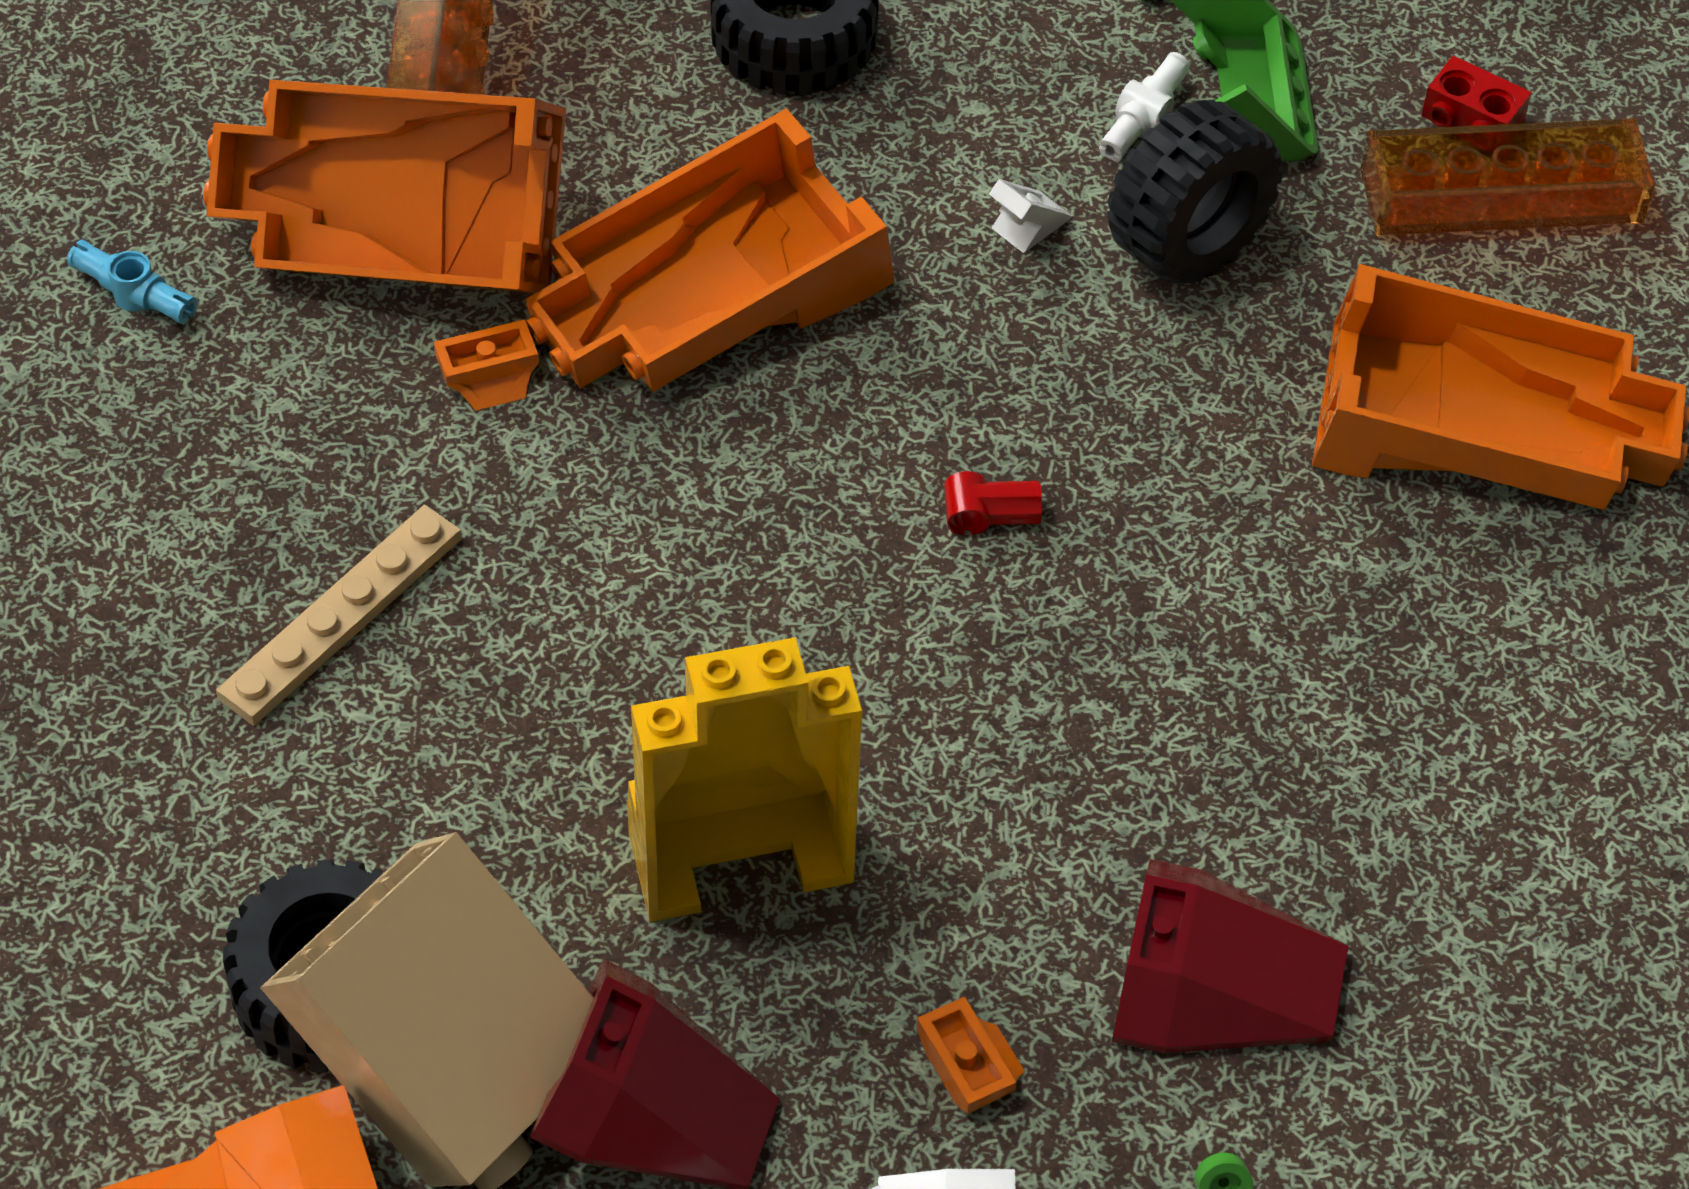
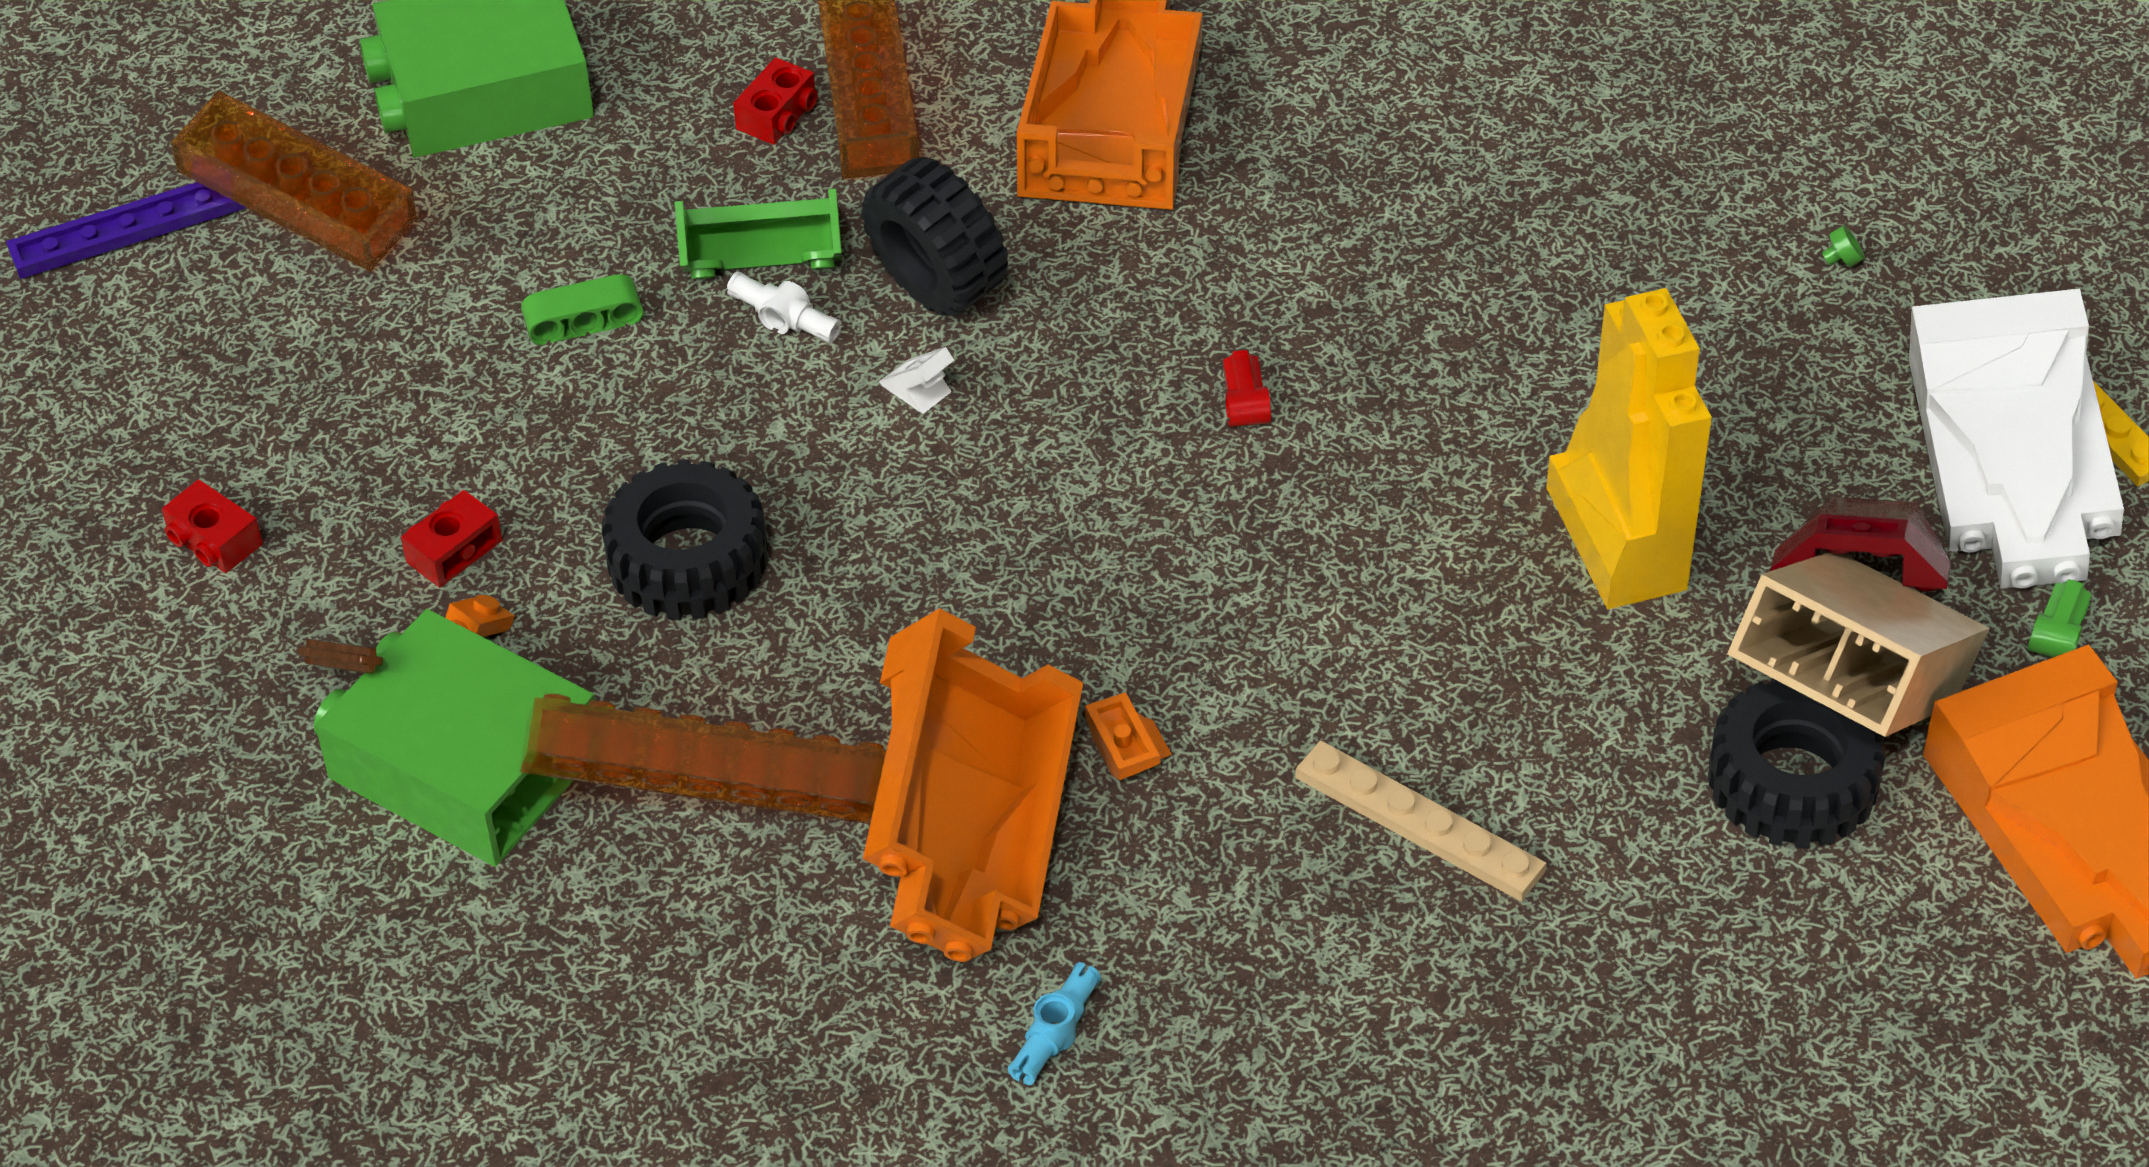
camera: 90 degrees left, 5 degrees down
(708, 261) = (1014, 564): orange panel -> none
(968, 1055) = (1780, 385): orange slope -> none
(1223, 969) = (1664, 239): dark red wedge -> none

